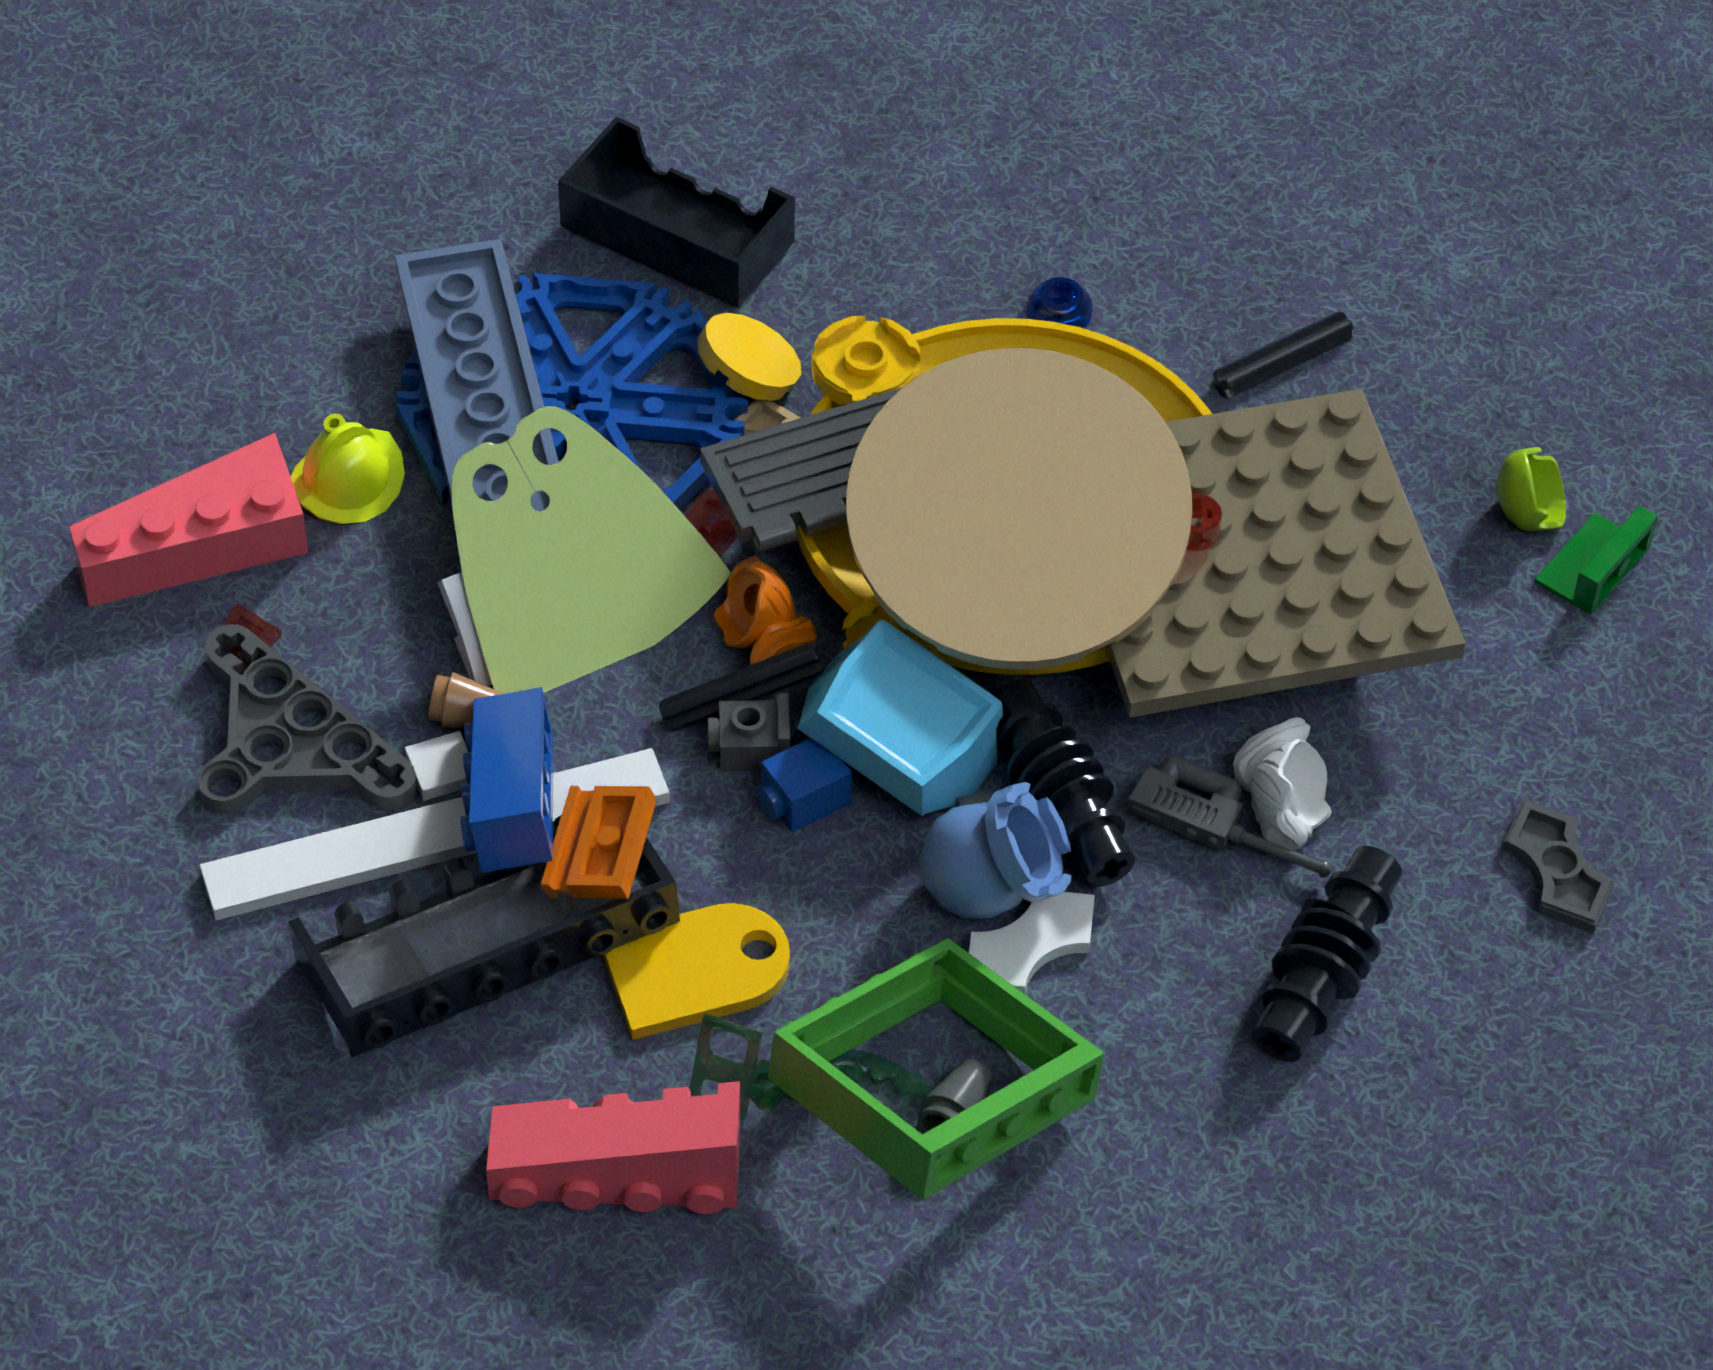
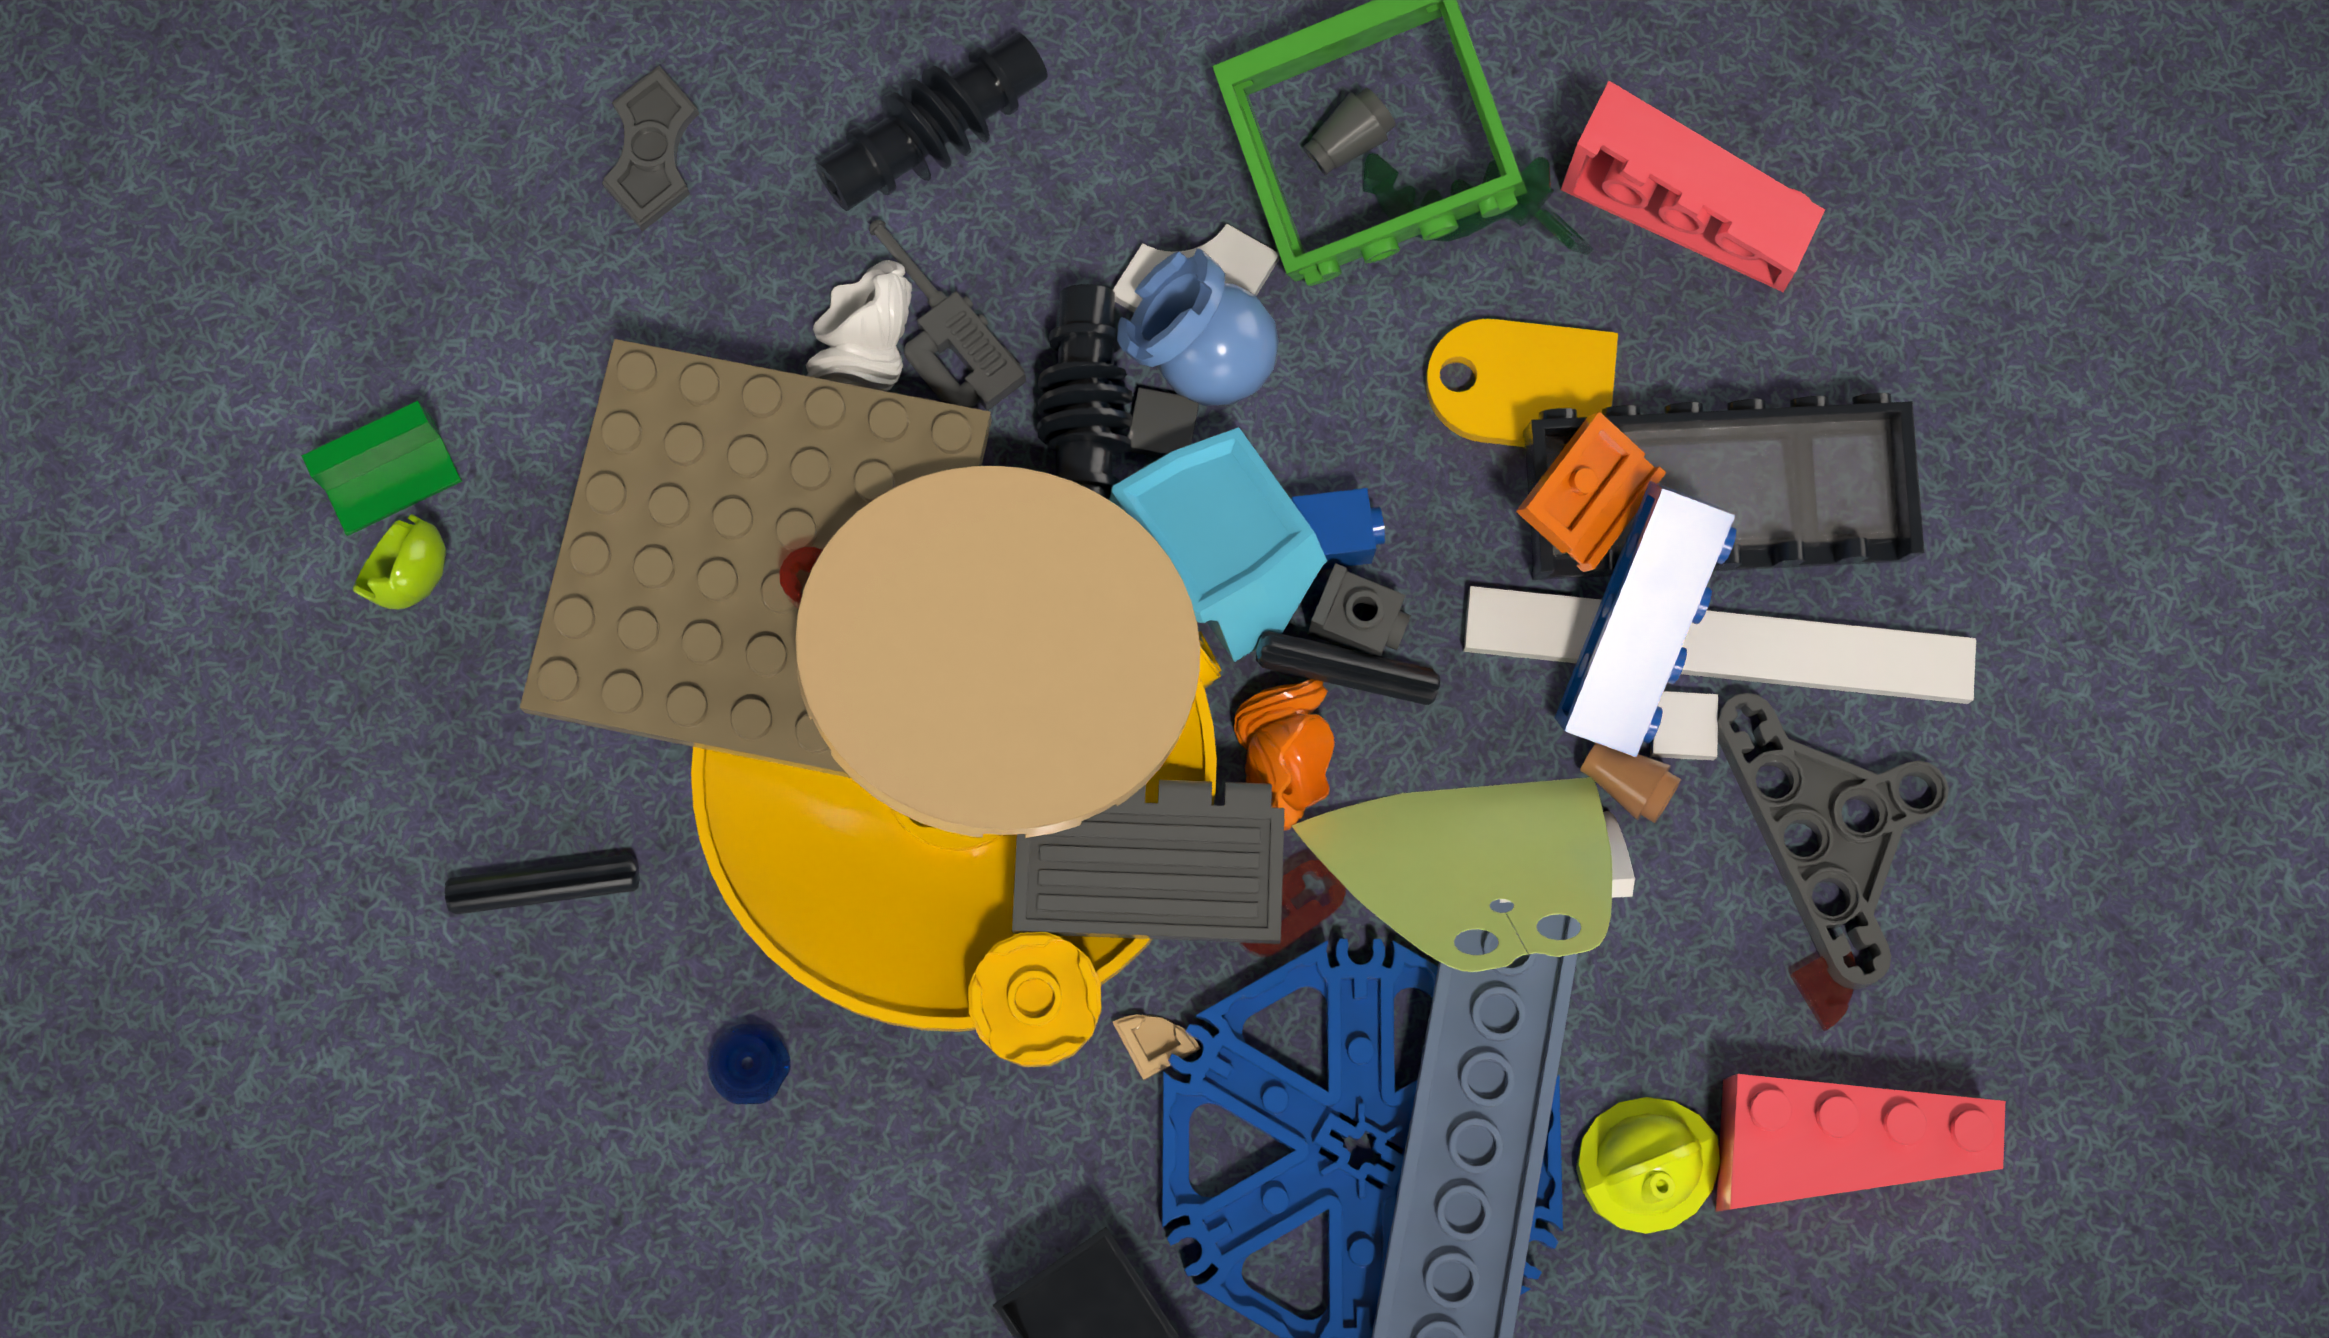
camera: 155 degrees left, 25 degrees up
(750, 355) = (1139, 1121): yellow tile -> none

